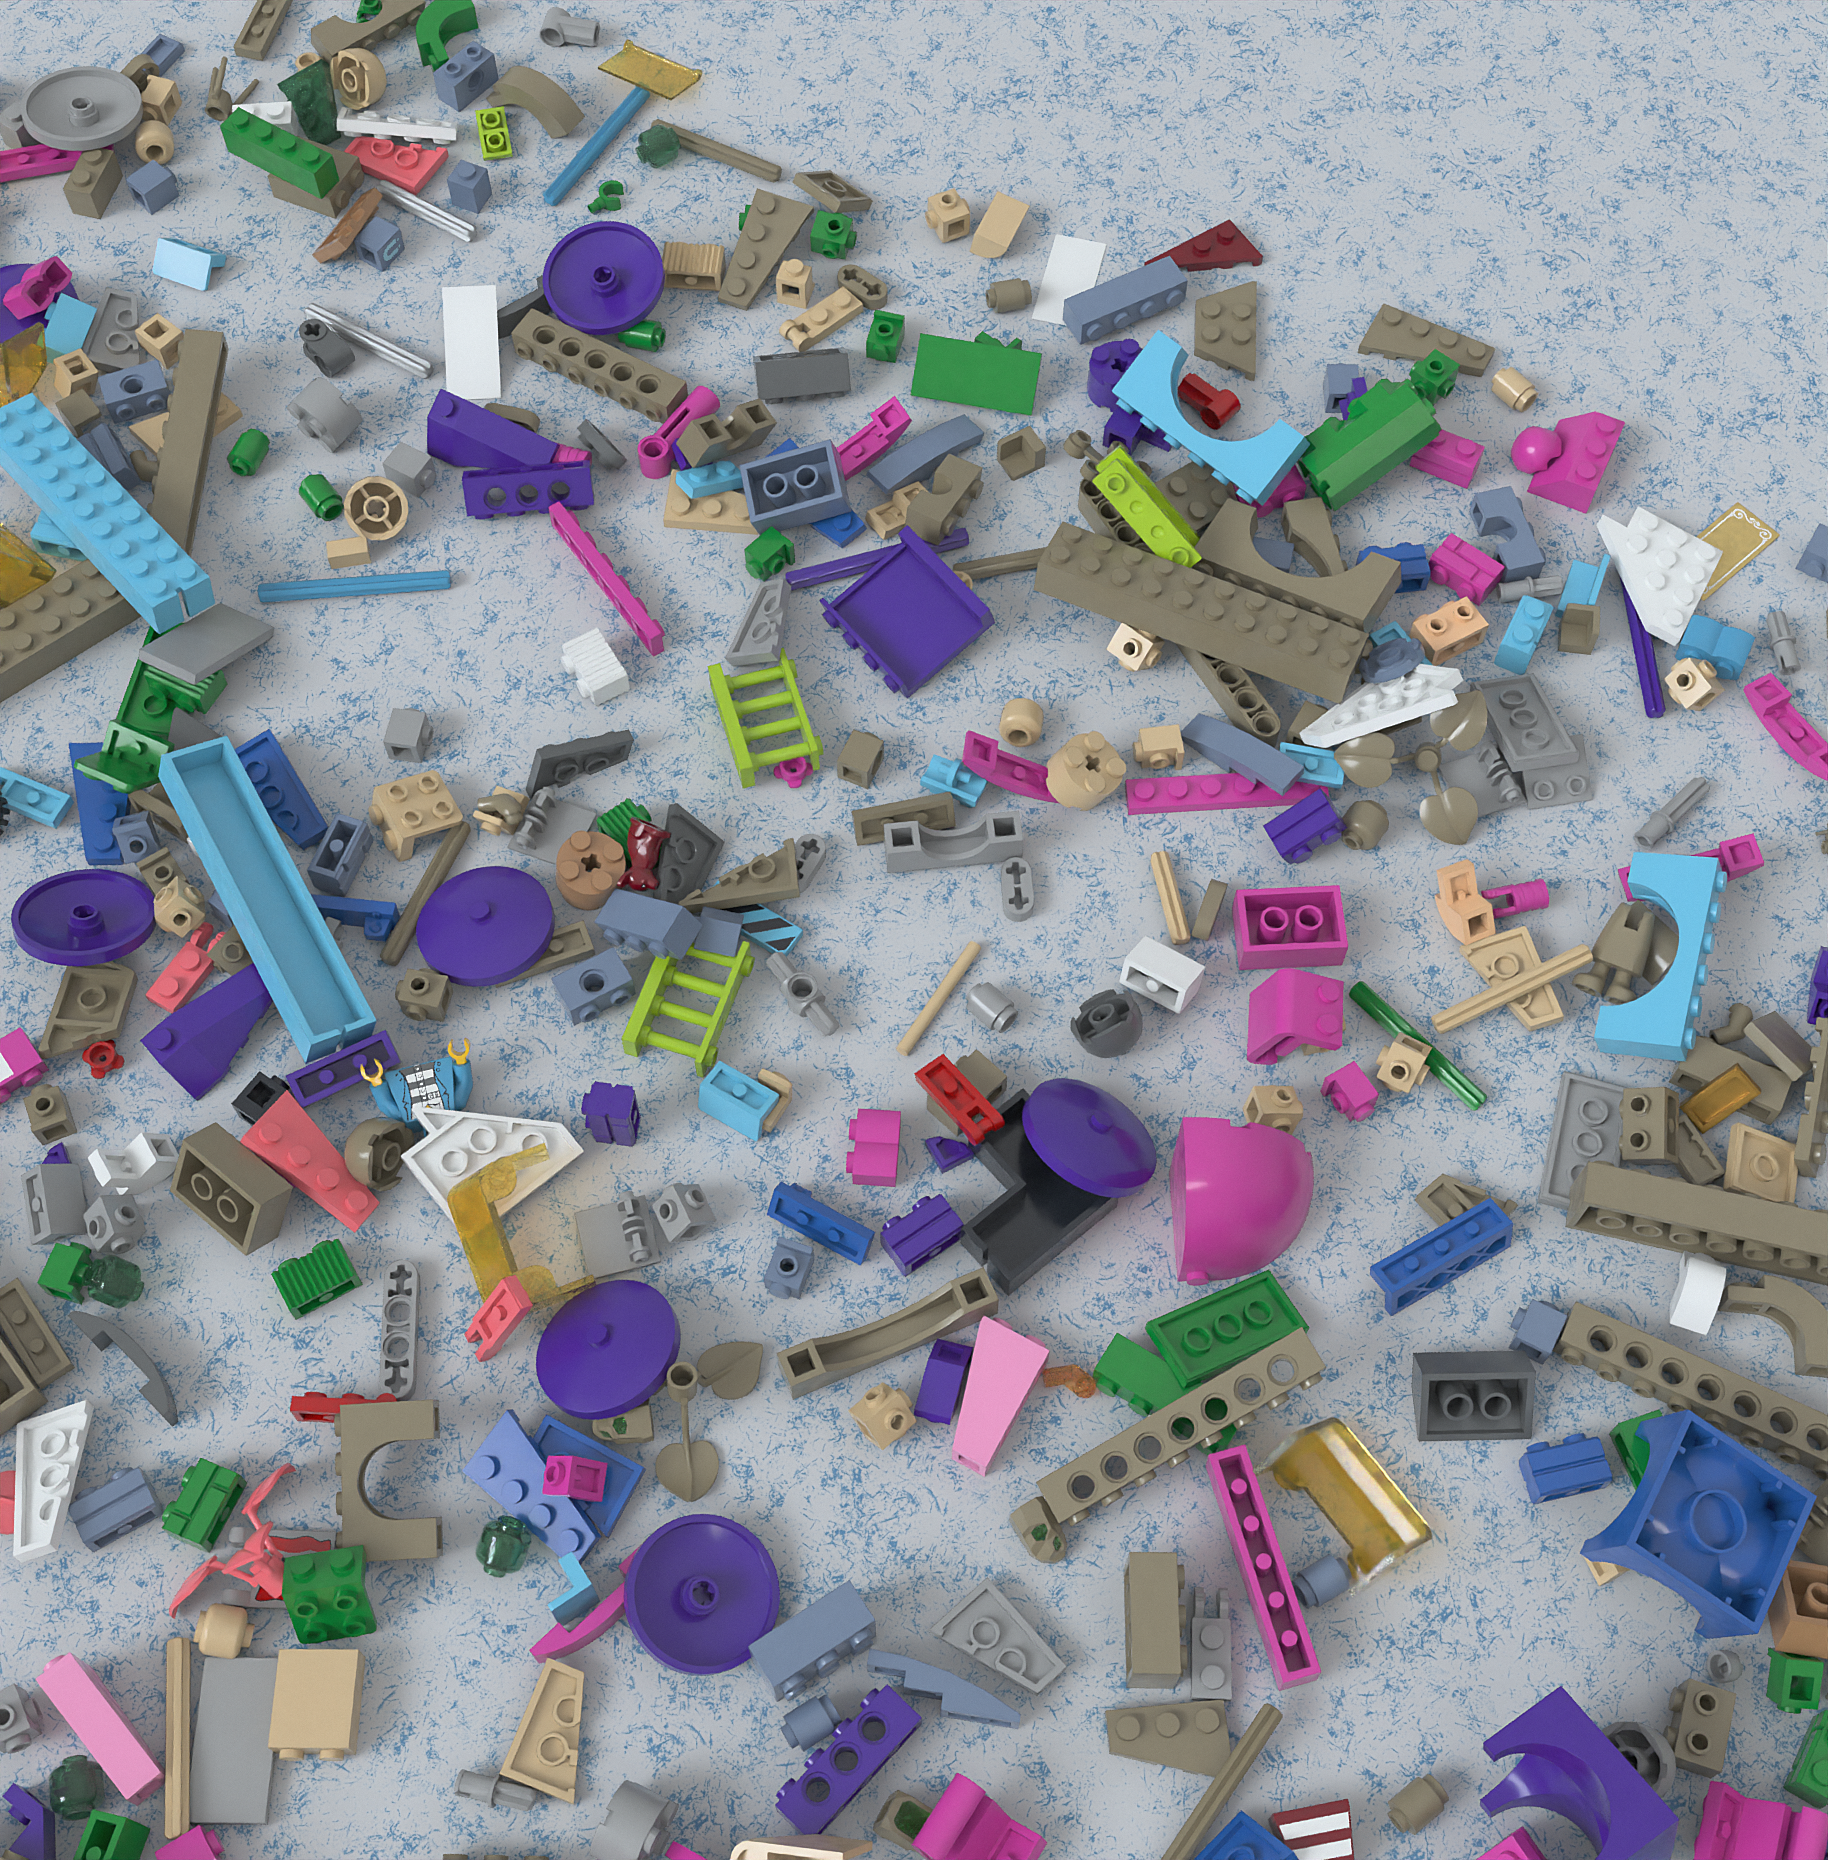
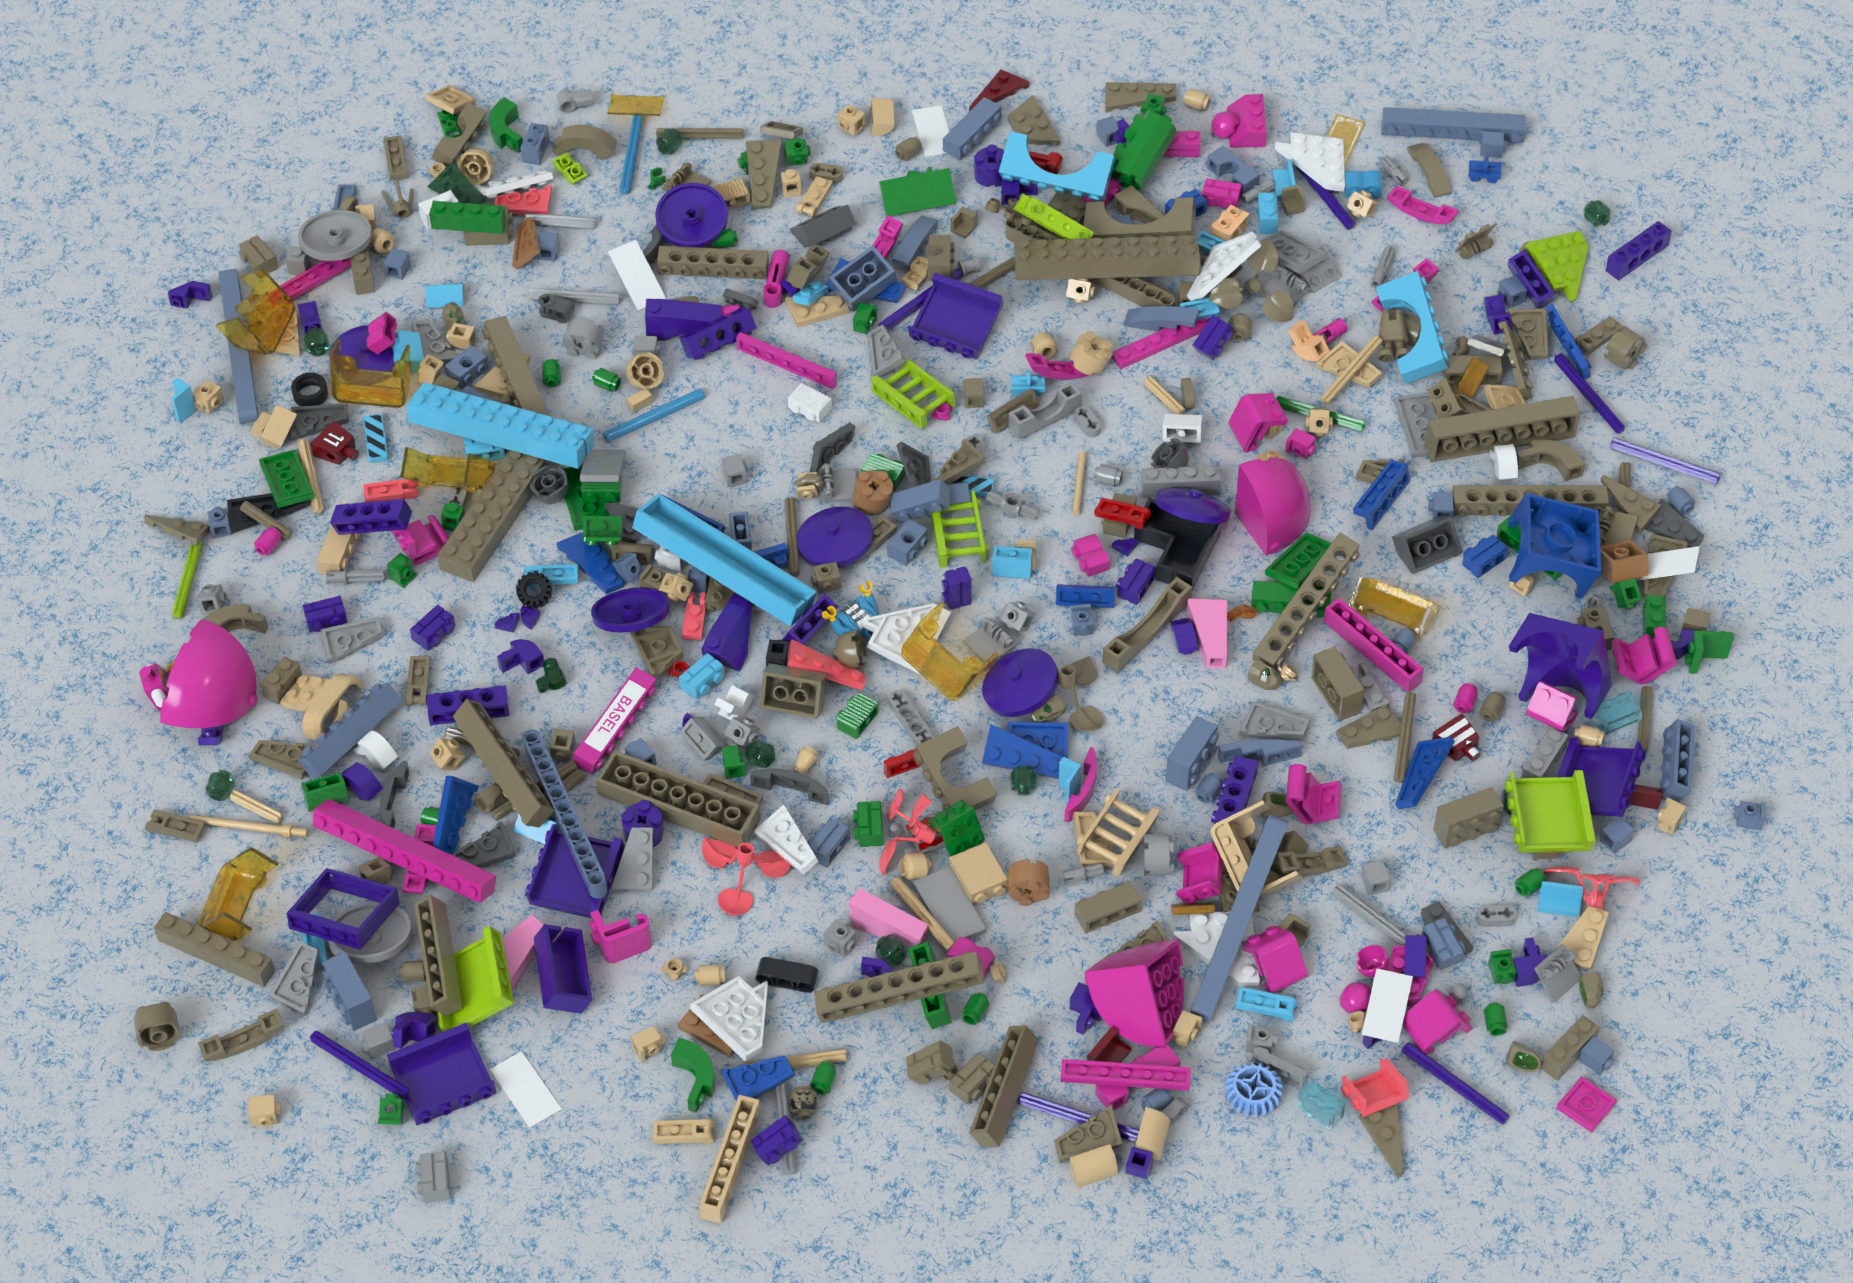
camera: 25 degrees left, 10 degrees down
(49, 1114) = (672, 703): dark tan brick -> none
(111, 641) = (550, 484): none -> dark grey cylinder
(123, 1087) = (702, 676): none -> medium azure brick
(170, 302) = (452, 314): none -> dark tan rock
(182, 1325) = (805, 760): none -> tan cone
(379, 1772) = (1028, 882): none -> medium nougat brick
(412, 810) = (761, 502): tan bracket -> none
(469, 186) = (578, 199): sand blue brick -> none
(498, 1317) = (961, 688): coral hinge -> none
(574, 1478) = (1040, 735): dark pink bracket -> none
(629, 1759) = (1128, 847): none -> tan fence
(644, 848) = (895, 467): dark red animal -> none
(649, 216) = (683, 176): none -> dark tan hinge
(701, 1594) = (1128, 758): dark purple dish -> none
(883, 1415) = (1165, 658): tan brick -> none
(885, 336) = (855, 192): green brick -> none
(985, 531) = (969, 265): none -> light grey bush
(1082, 1545) = (1287, 672): none -> tan plate
(1136, 1084) = (1199, 478): none -> light grey arch
(1159, 747) = (1120, 331): tan brick -> none
(1289, 927) = (1229, 382): dark pink brick -> none
(1376, 1761) = (1465, 698): none -> dark pink brick
(1392, 660) = (1213, 245): sand blue tile -> none

